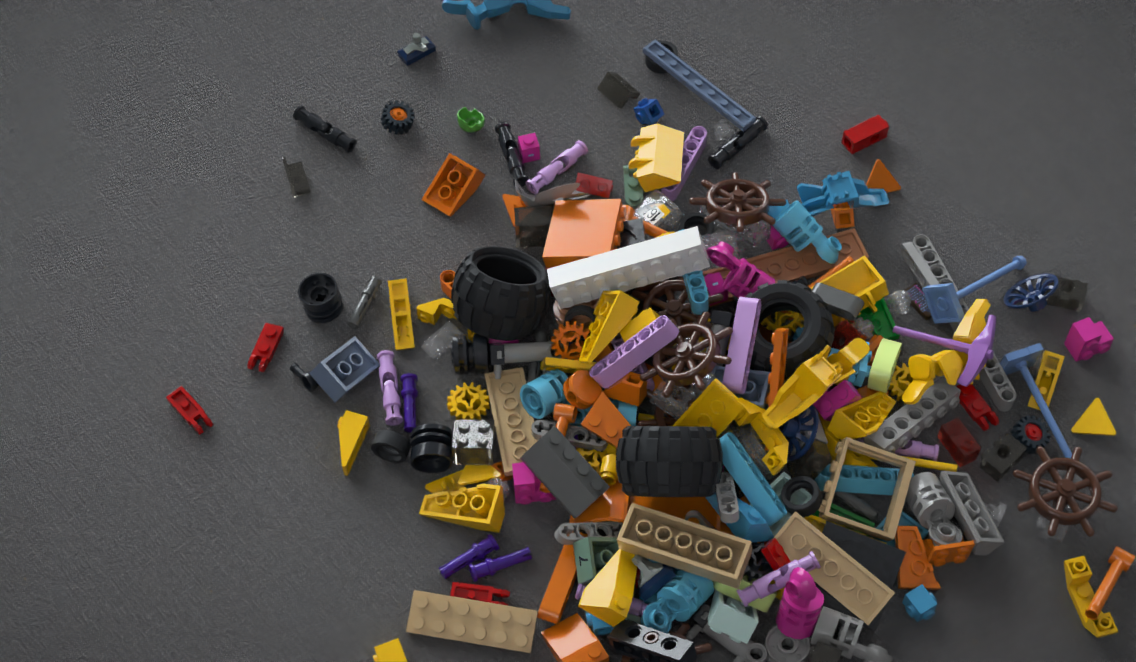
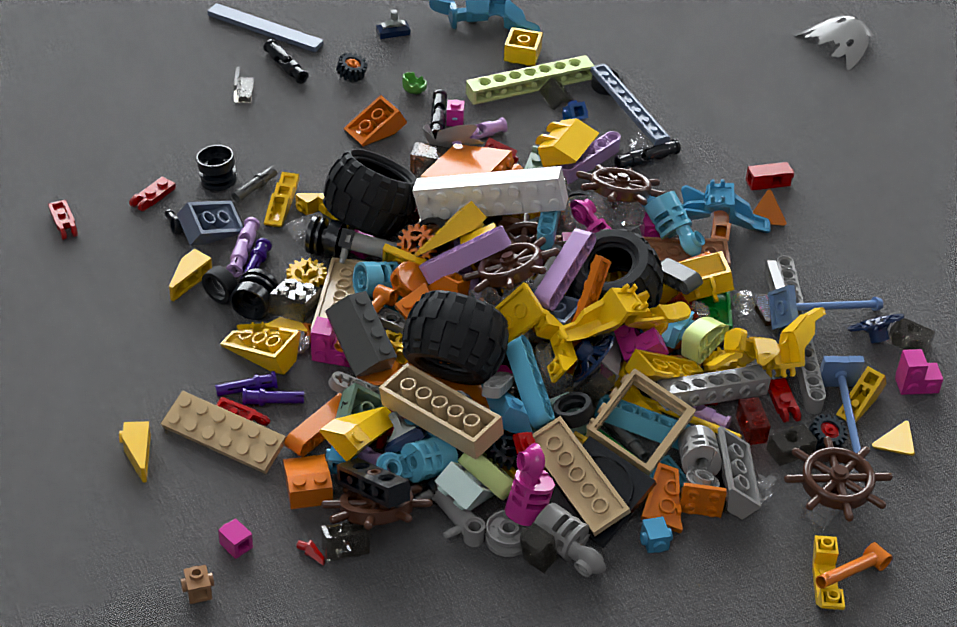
camera: 15 degrees right, 15 degrees down
(281, 87) = (265, 27): none -> tile
(562, 38) = (523, 46): none -> yellow brick
(583, 79) = (527, 79): none -> yellowish green brick
(761, 588) = (498, 469): lavender piece -> none
(977, 352) = (794, 346): medium lavender piece -> none

